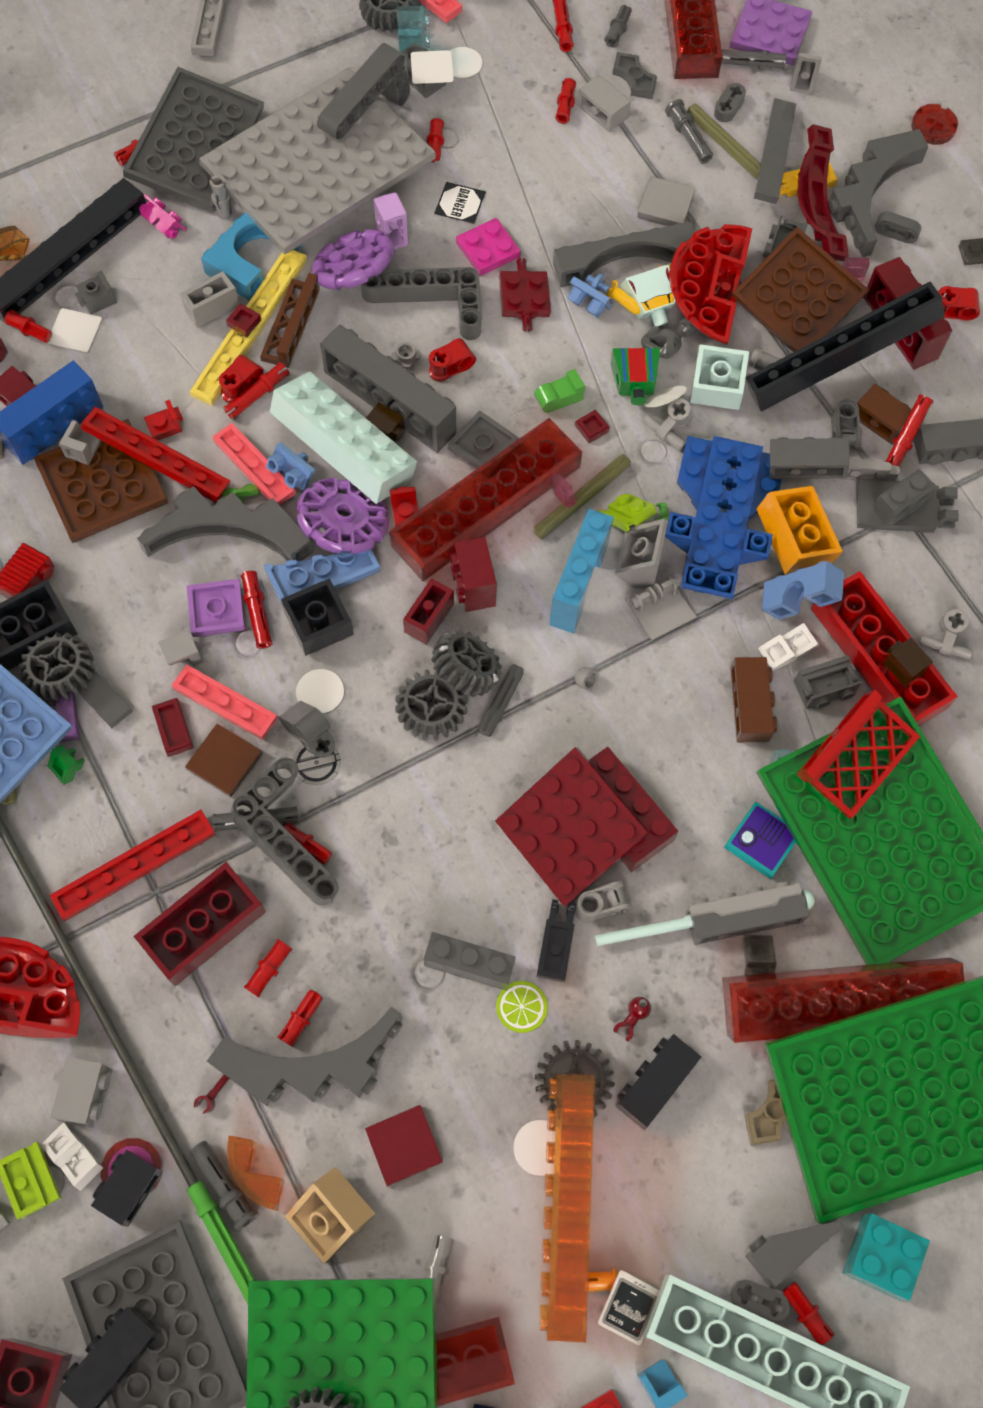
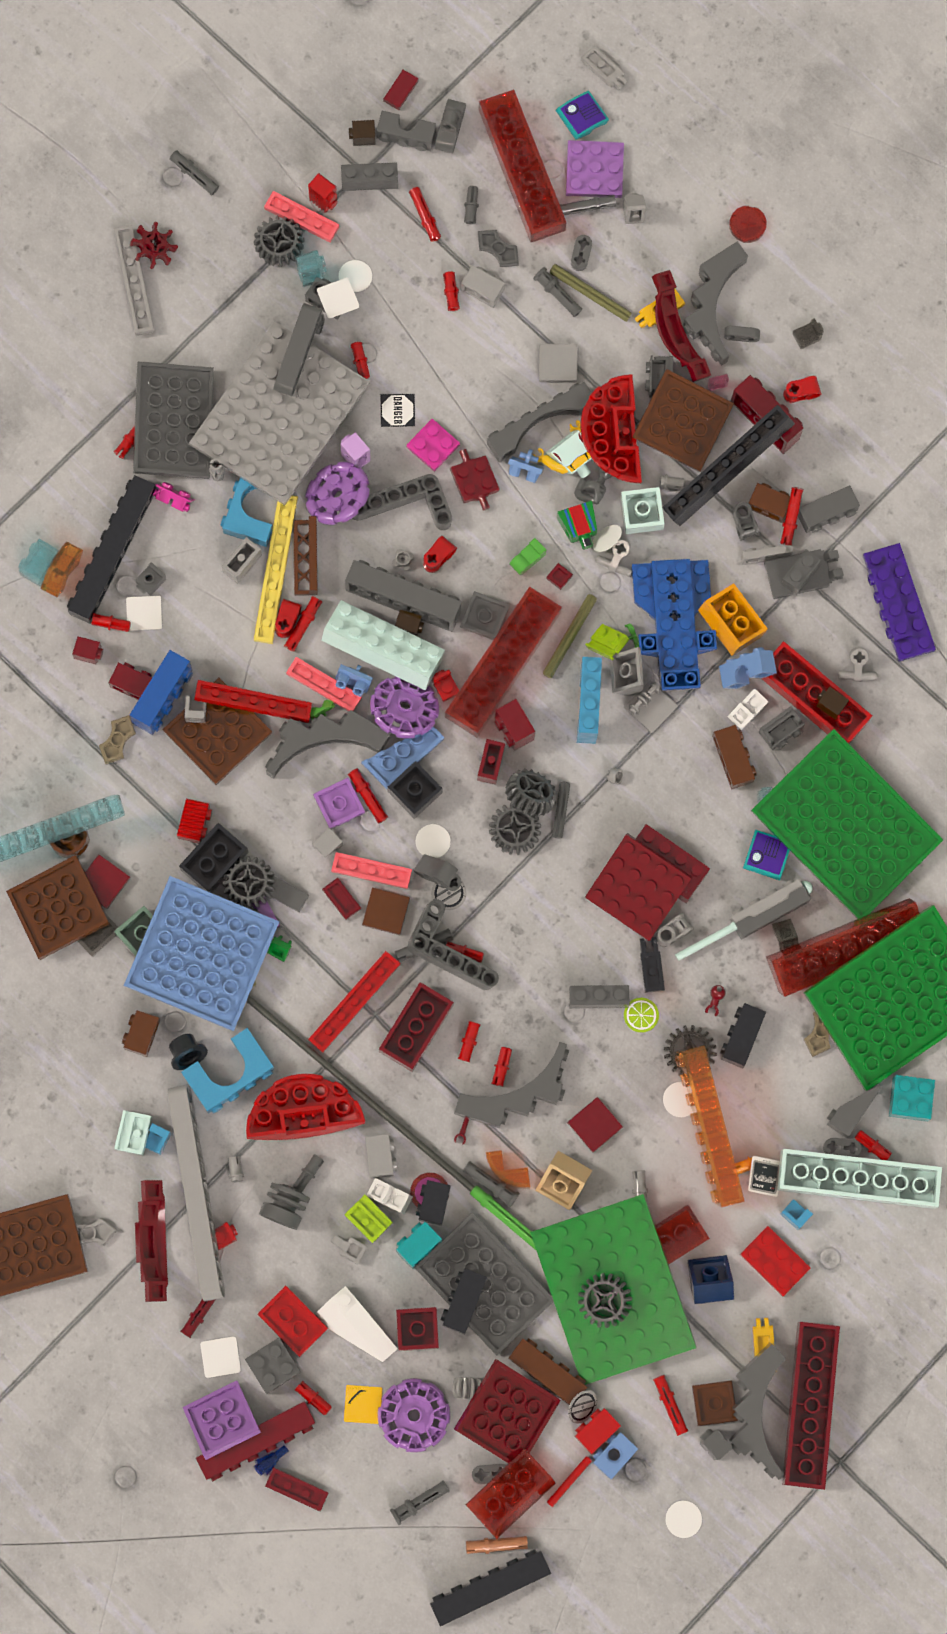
camera: 20 degrees left, 10 degrees up
(77, 1245) = (418, 1244): none -> teal brick
(165, 422) = (244, 670): red bracket -> none
(243, 320) = (273, 570): dark red plate -> none
(562, 490) = (556, 639): clear pink tile -> none
(775, 151) = (630, 291): dark grey tile -> none
(809, 458) = (725, 561): dark grey brick -> none
(845, 734) = (800, 772): red fence -> none

